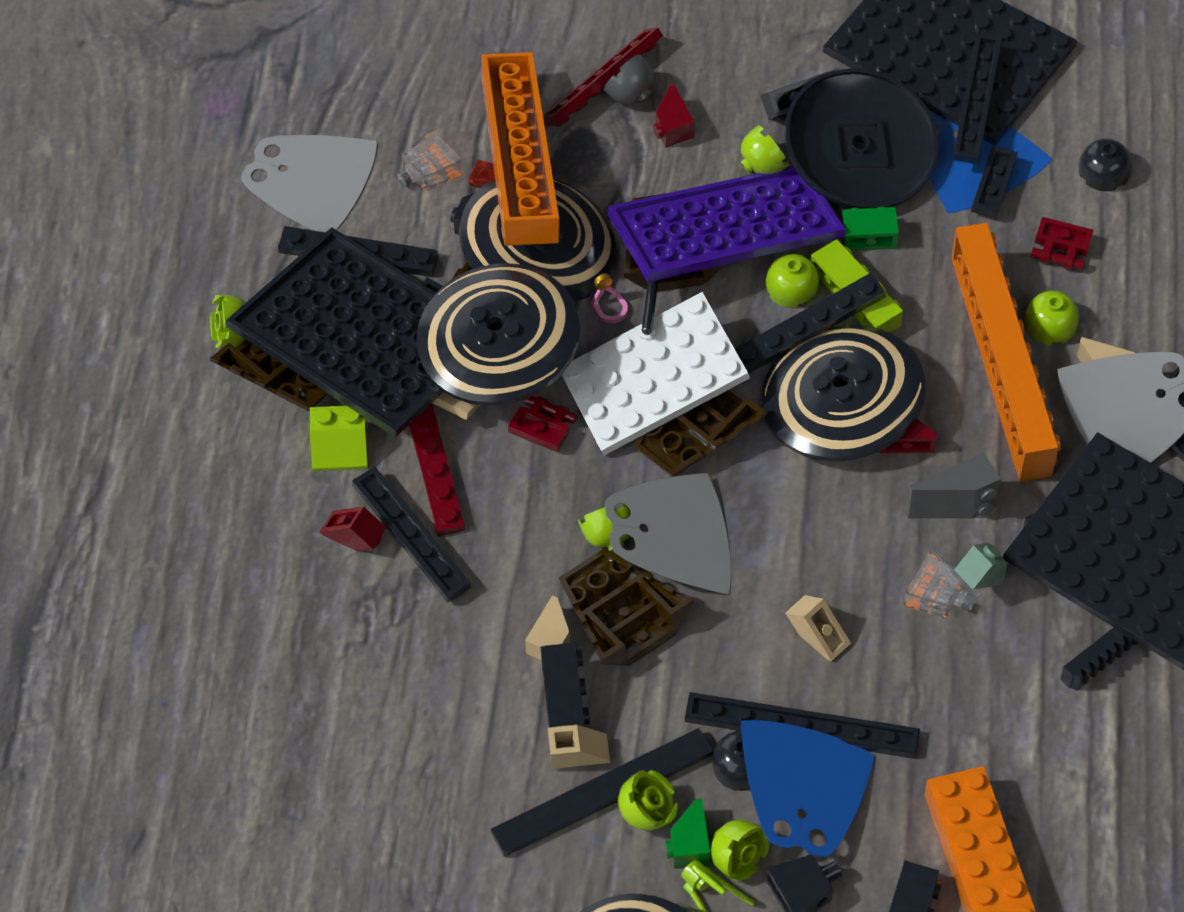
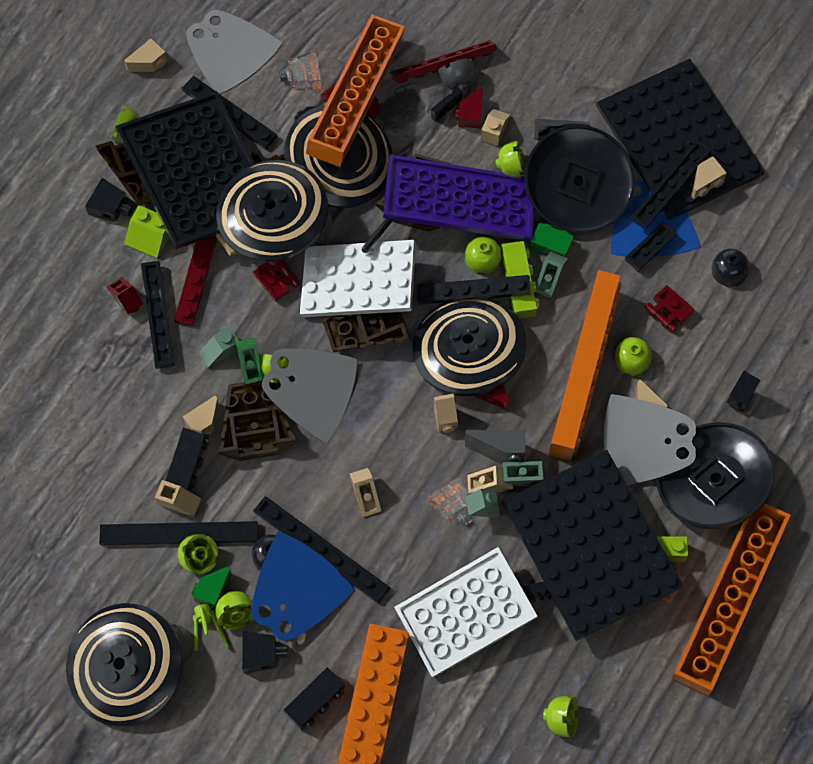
camera: 25 degrees right, 10 degrees up
(210, 230) = (146, 58): none -> tan slope
(262, 425) = (108, 202): none -> black torso
(520, 537) = (219, 348): none -> sand green slope
(573, 532) = (249, 361): none -> green brick
(604, 283) = (362, 203): bright pink piece -> none
(637, 125) = (446, 104): none -> black tile
(714, 127) = (494, 127): none -> tan slope
(864, 484) = (445, 413): none -> tan slope
(892, 265) = (550, 274): none -> sand green slope
(972, 531) = (488, 479): none -> tan slope
(1008, 510) = (522, 473): none -> sand green slope
(1015, 70) = (708, 175): none -> tan slope
(1040, 709) = (466, 612): none -> white plate

